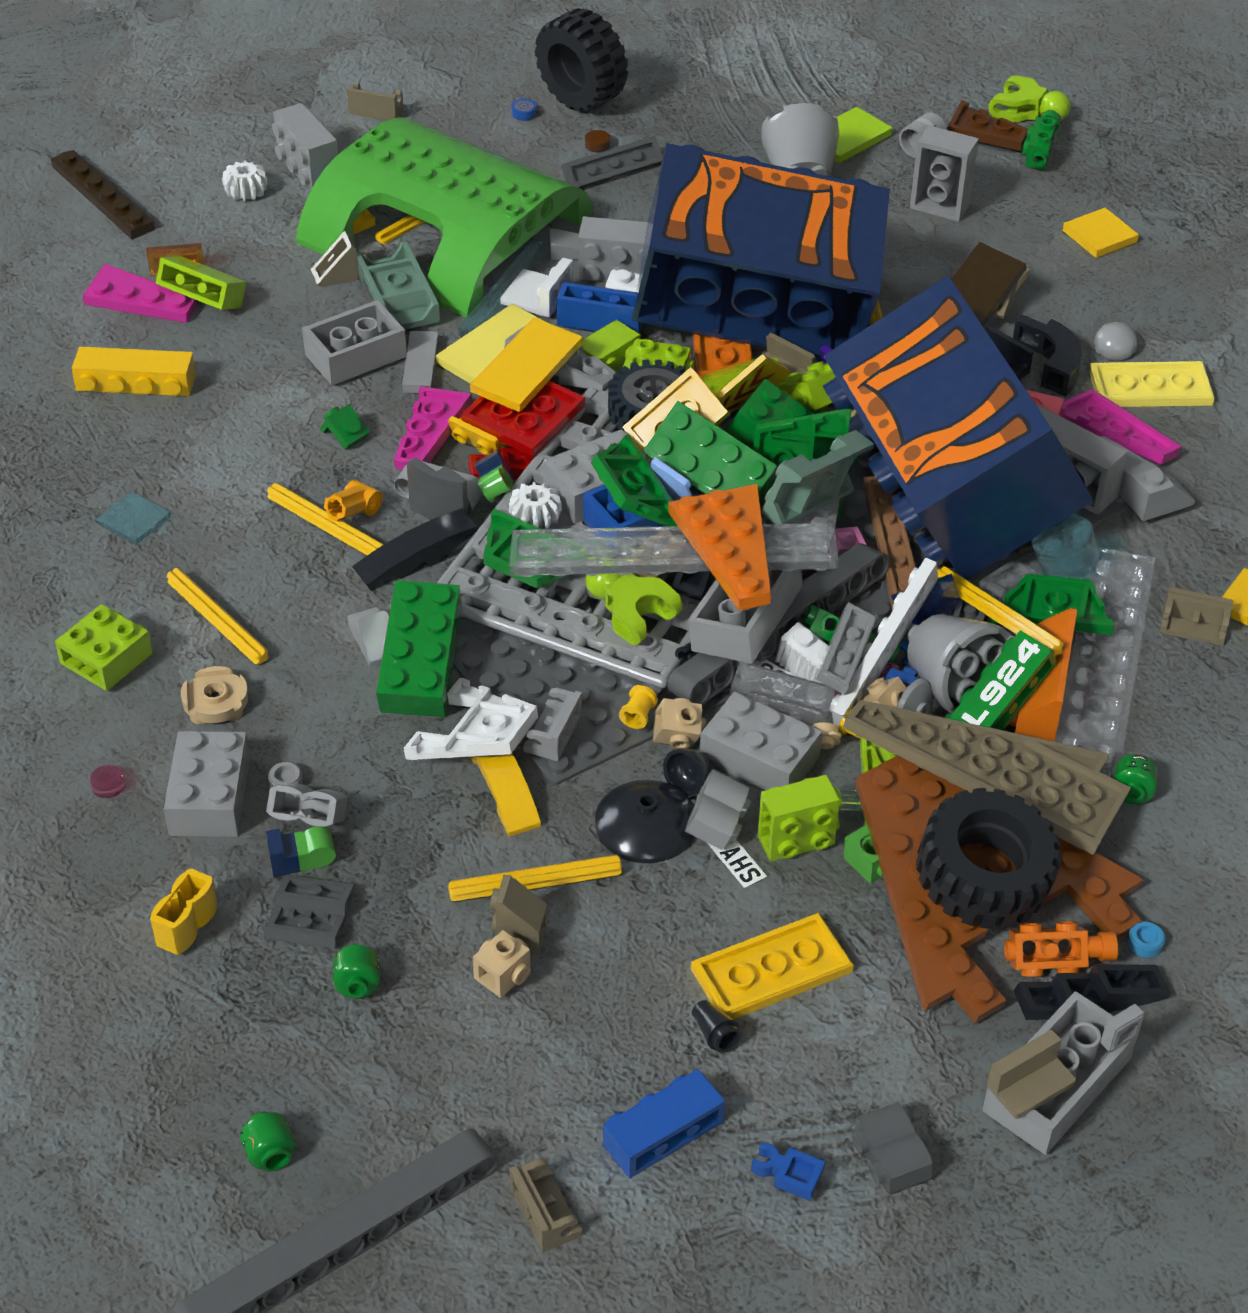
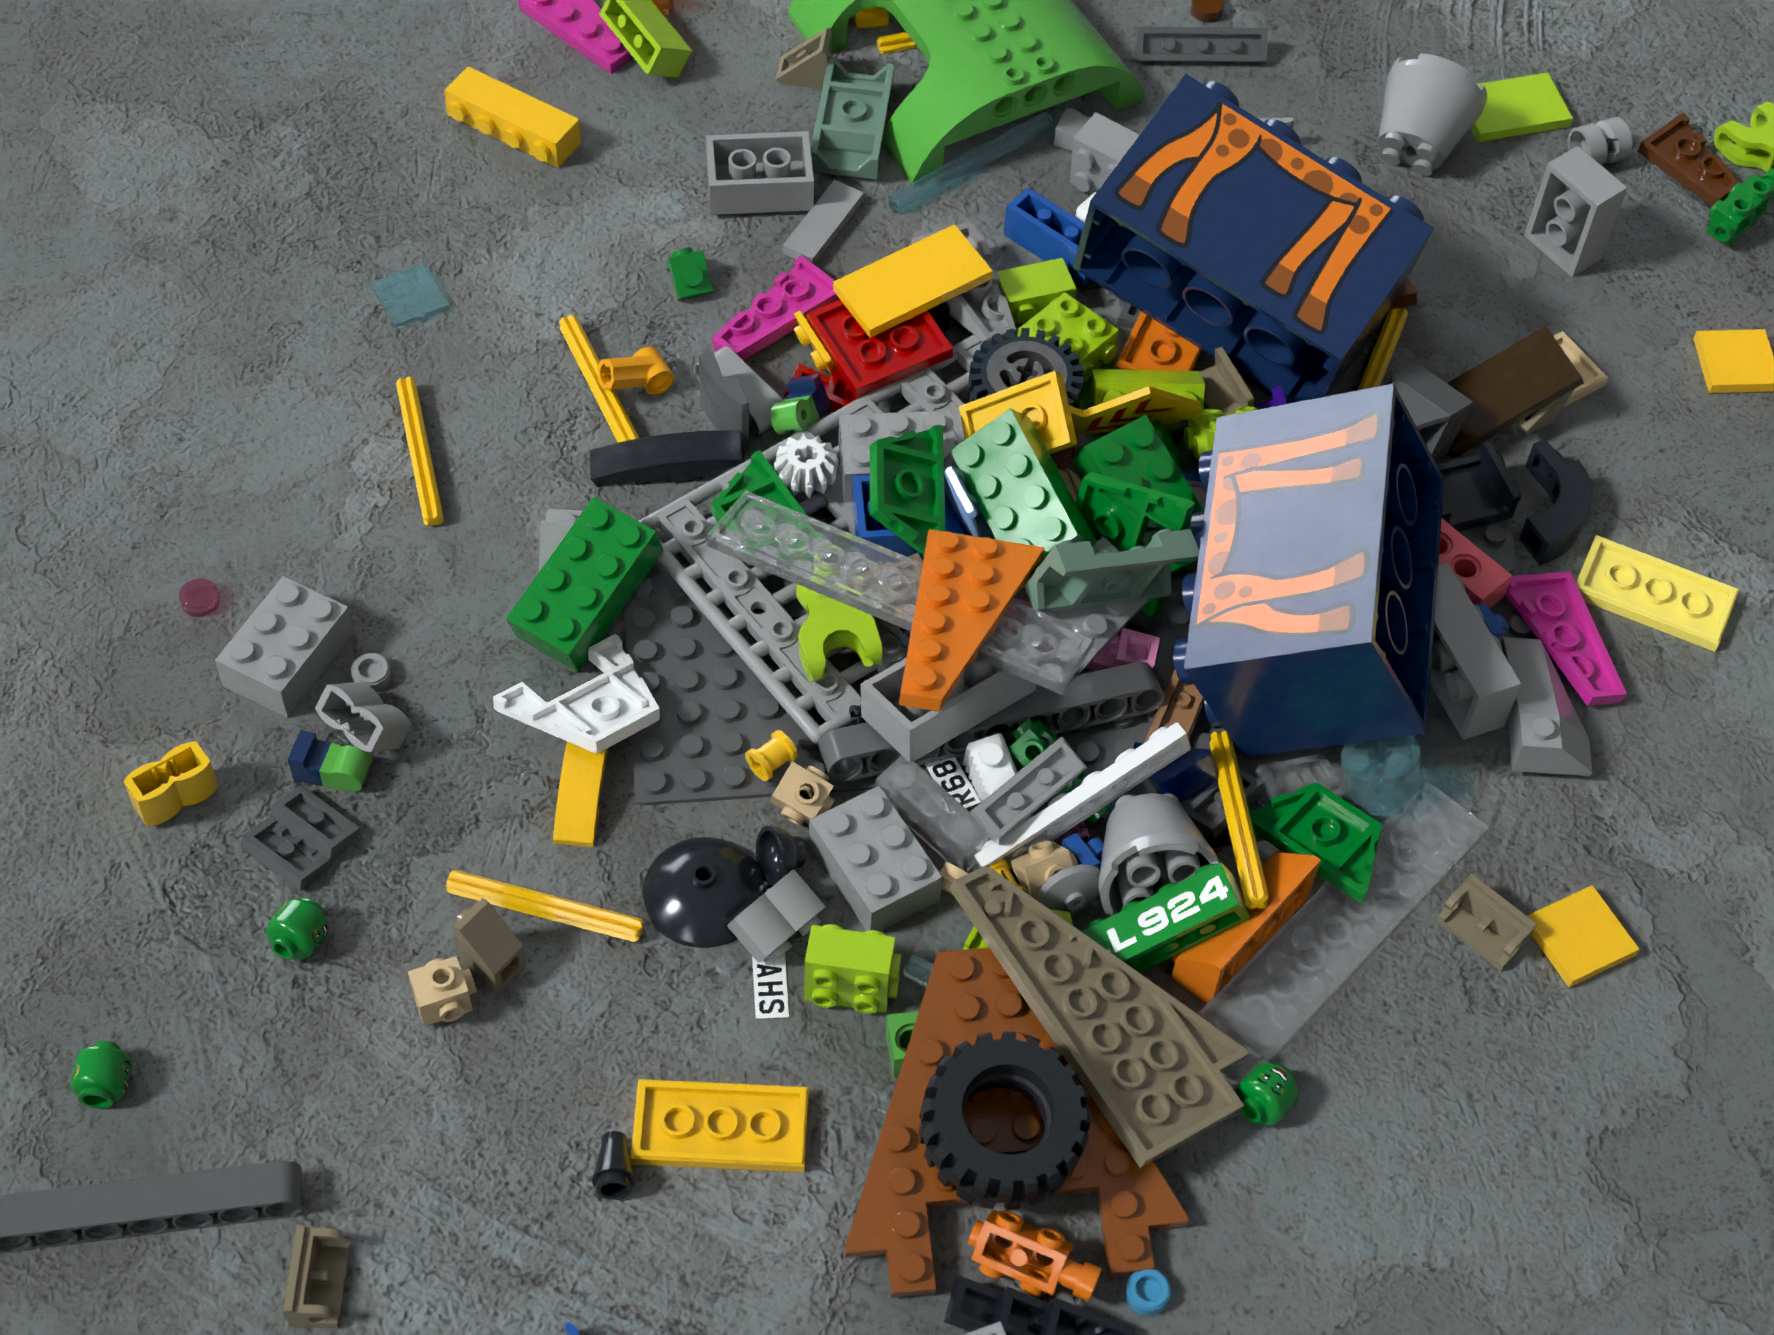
camera: 25 degrees right, 10 degrees up
(104, 647) = (281, 441): lime brick -> none
(207, 709) = (364, 562): tan plate -> none
(480, 346) = (893, 229): light yellow tile -> none
(538, 291) = (1007, 176): white bracket -> none
(555, 725) = (672, 738): light grey hinge -> none
(663, 1123) = (487, 1248): blue brick -> none
(1115, 341) = (1648, 518): light grey hair -> none

